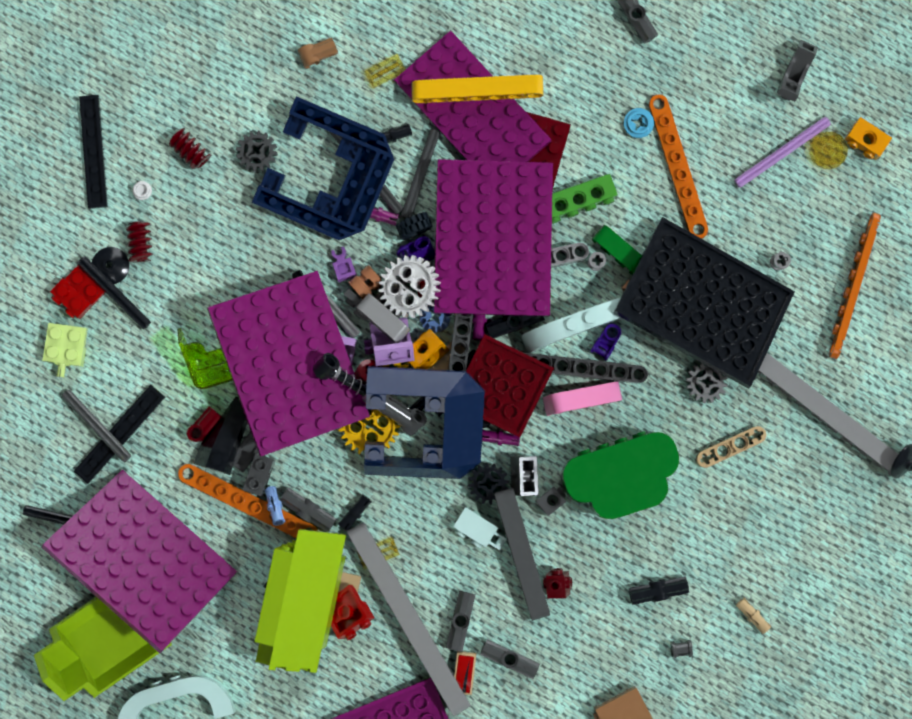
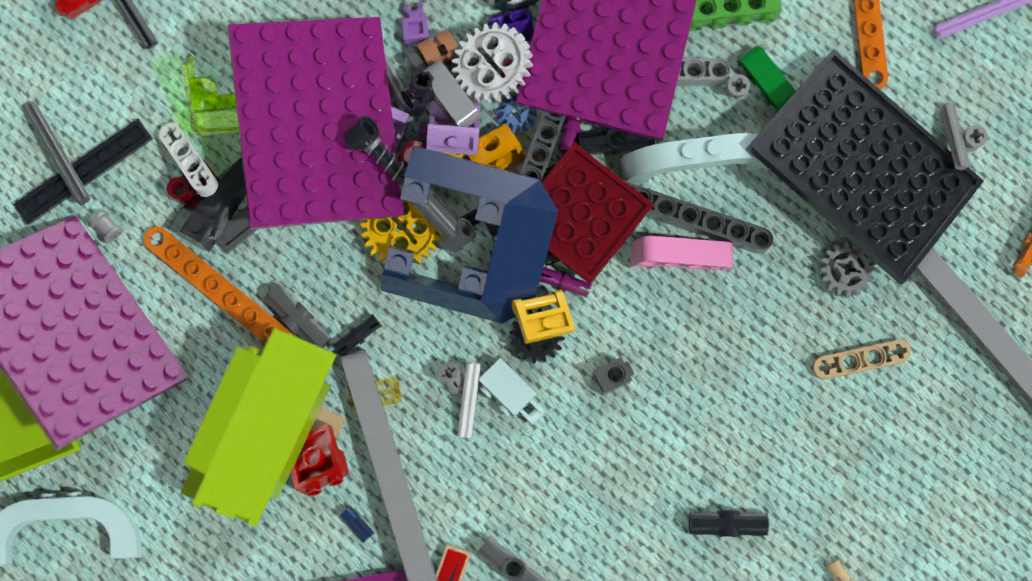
camera: 15 degrees right, 5 degrees down
(65, 346) = (43, 47): yellowish green plate -> none
(148, 473) = (106, 227): none -> light grey bush
(199, 407) = (189, 158): none -> white beam
(259, 475) = (246, 259): dark grey brick -> none
(274, 505) = (255, 301): light blue pin -> none
(360, 324) = (418, 93): none -> black piece
(388, 652) = (357, 524): none -> dark blue piece
(438, 528) = (448, 379): none -> light grey bush
(449, 545) = (468, 399): none -> white axle
(458, 634) = (468, 489): dark grey piece -> none
(492, 475) = (545, 323): none -> yellow plate
(522, 554) = (560, 435): dark grey beam -> none
(524, 475) = (587, 338): dark grey brick -> none
(557, 583) = (598, 484): dark red brick -> none
(606, 342) = (726, 193): dark purple piece -> none
(623, 475) = (712, 362): green brick -> none
(766, 263) = (955, 136): none -> light grey axle

